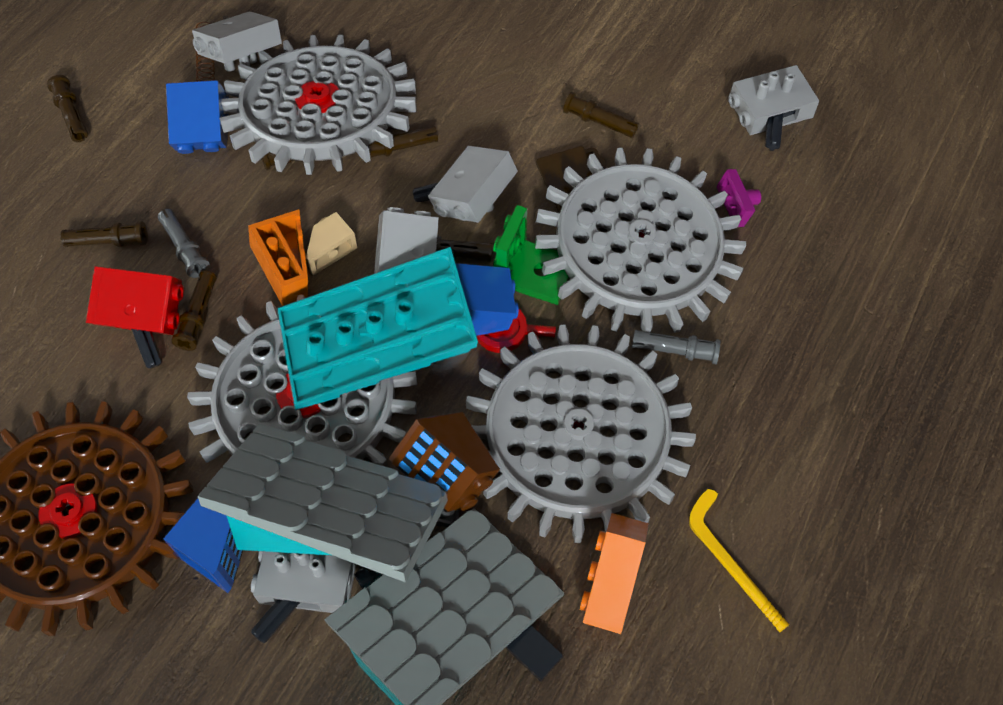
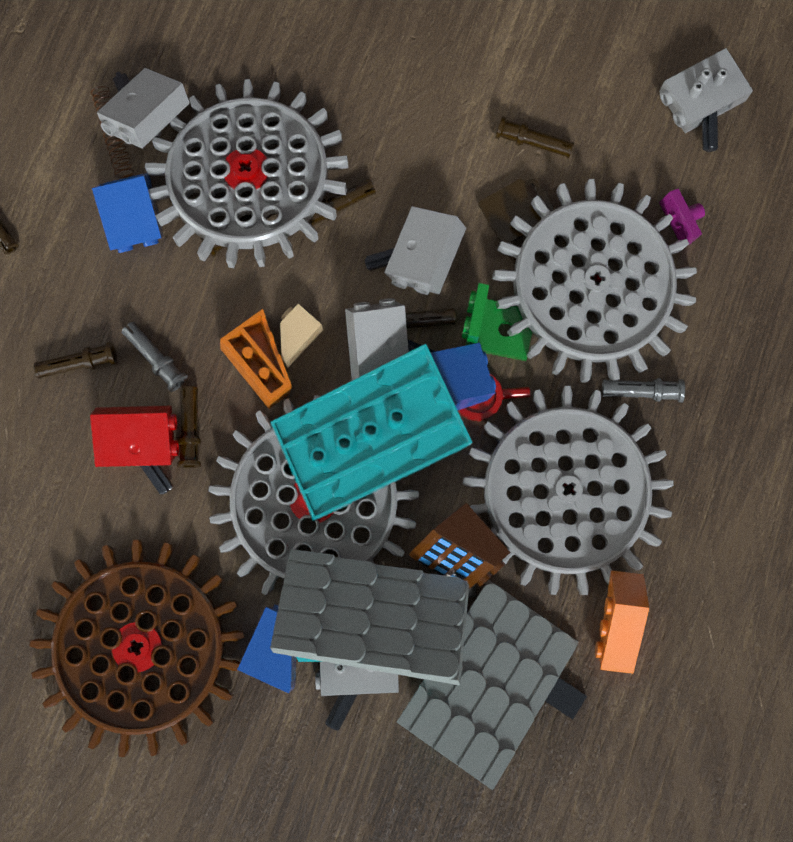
camera: 10 degrees left, 20 degrees up
(705, 535) = (687, 565): yellow piece -> none

